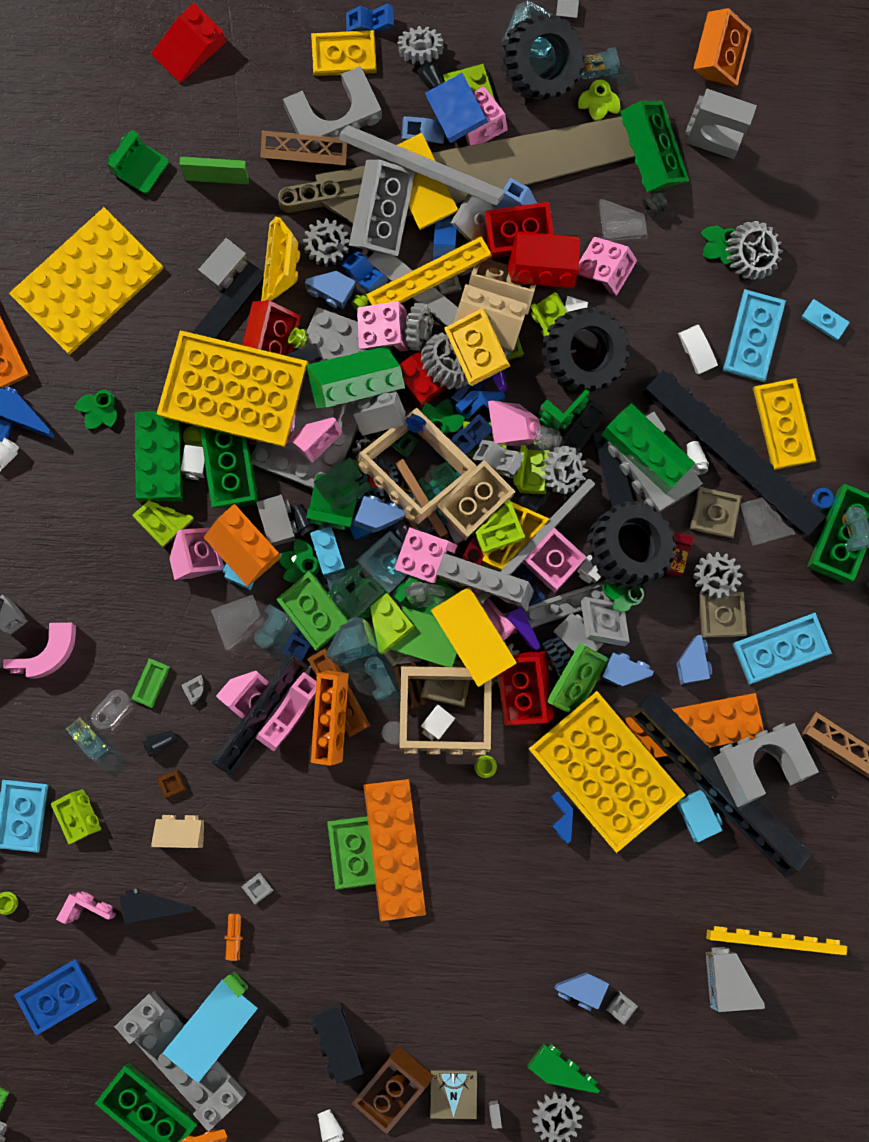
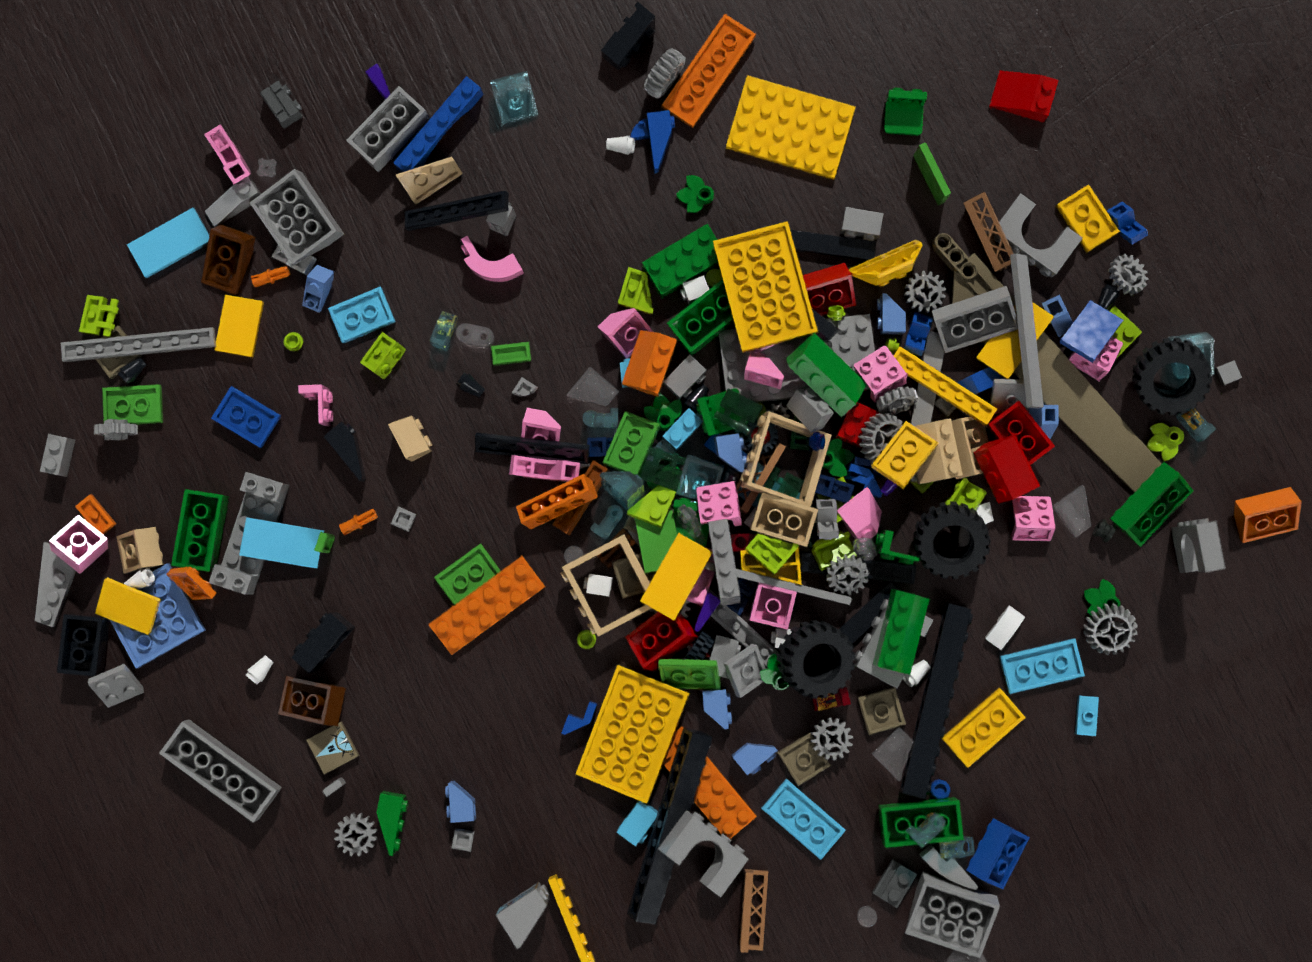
camera: 70 degrees right, 5 degrees up
(171, 784) = (445, 411): reddish brown tile -> none

